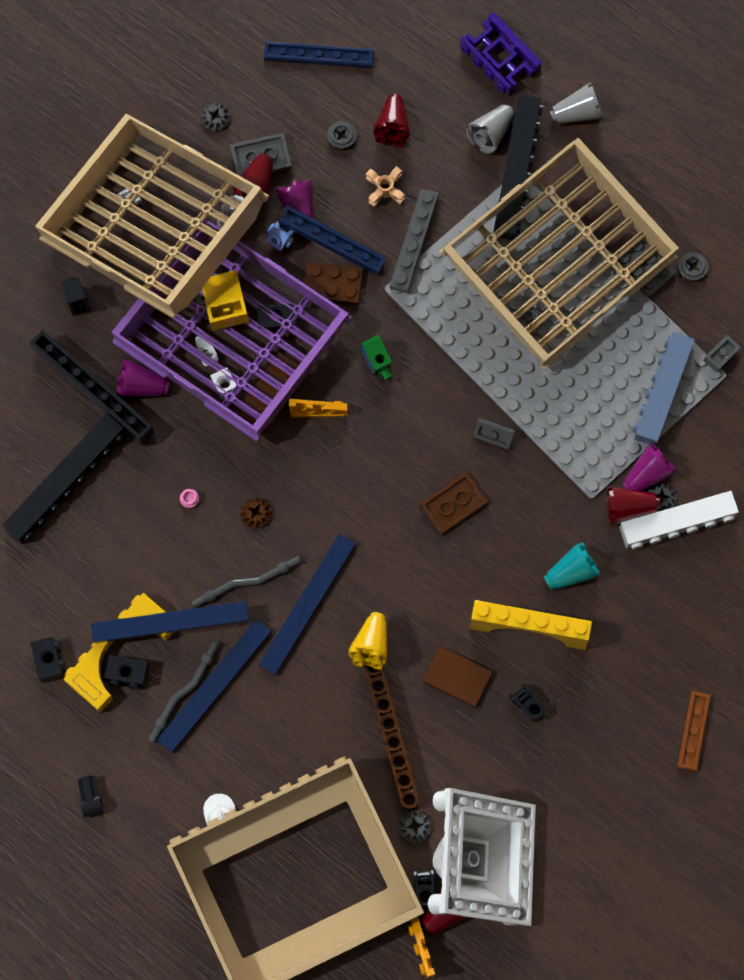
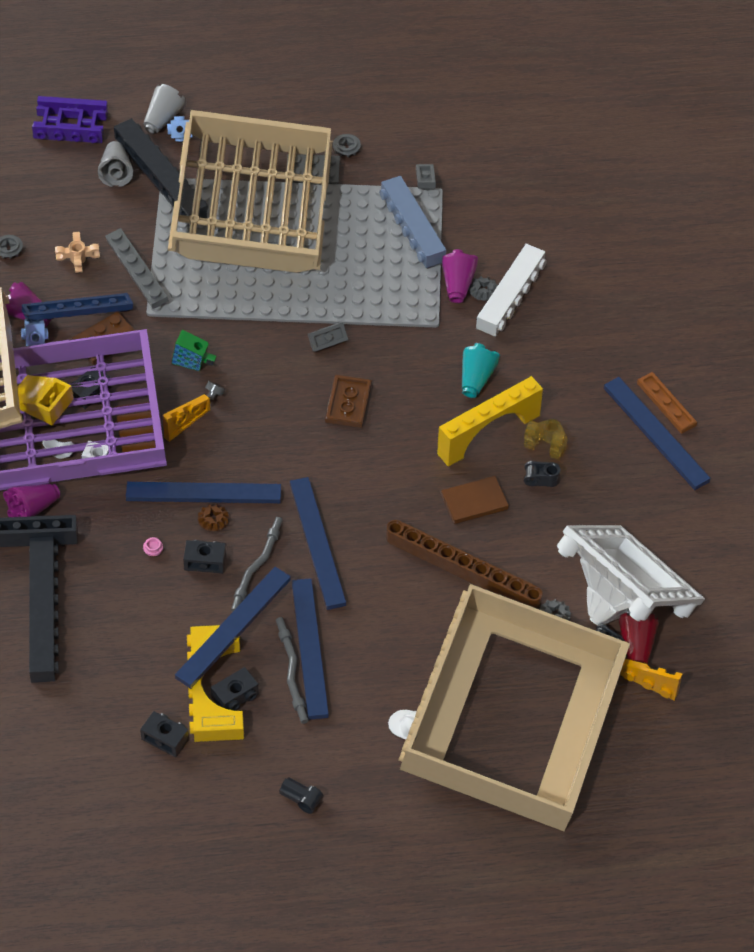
camera: 50 degrees left, 20 degrees down
(219, 551) = (212, 562): none -> black brick
(270, 485) = (203, 492): none -> dark blue tile
(364, 403) = (214, 389): none -> dark grey tile
(370, 643) = (397, 516): yellow cone -> none
(392, 123) = (40, 210): dark red cone -> none
(565, 691) = (542, 430): none -> clear yellow piece
(573, 132) = (172, 128): none -> light blue brick
(630, 504) = (468, 303): dark red cone -> none
(656, 750) = (657, 433): none -> dark blue tile

